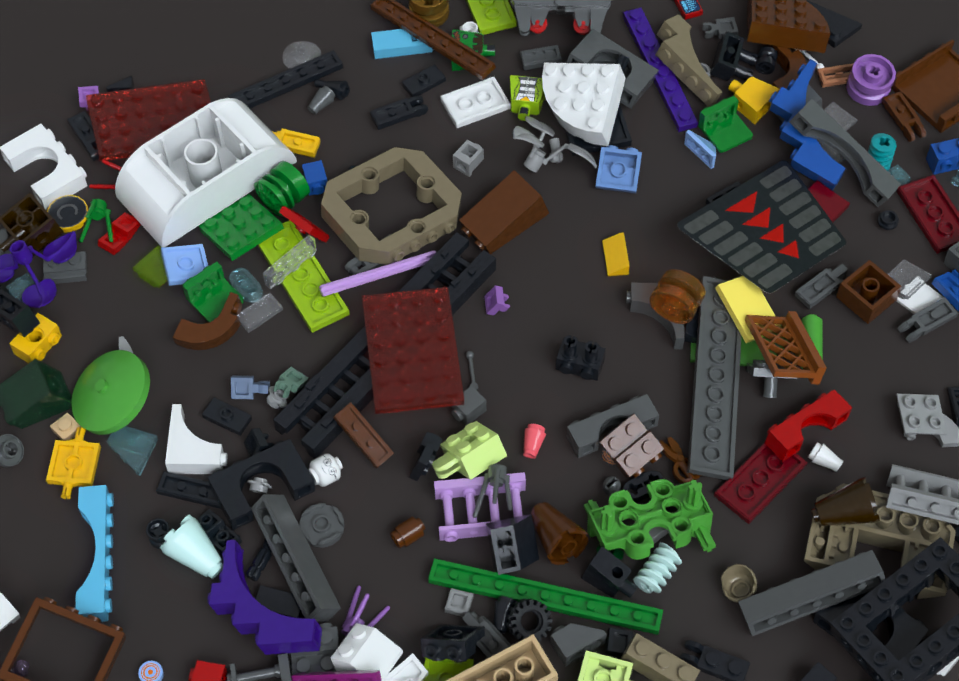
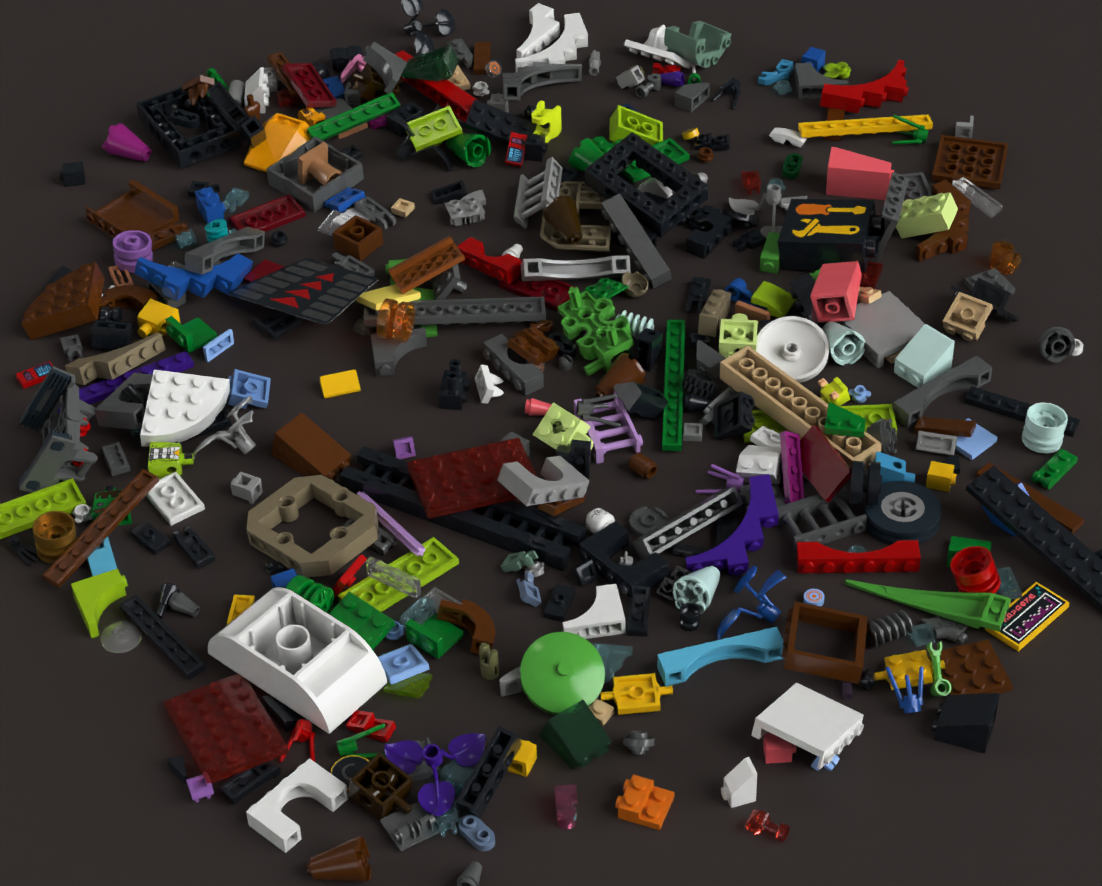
camera: 100 degrees left, 15 degrees down
(141, 605) = (765, 608): none -> blue plant
(154, 334) = (488, 662): none -> olive hinge
(232, 265) = (396, 632): none -> medium blue plate
(347, 31) = (96, 594): none -> lime arch
(377, 441) = (561, 482): none -> light grey arch
(593, 395) = (485, 384): none -> white tile
(727, 543) = (605, 288): none -> green hinge
(773, 556) = (546, 269): none -> light grey arch
(895, 129) = (185, 238): none -> clear light blue bush
(934, 350) = (402, 207): none -> tan plate

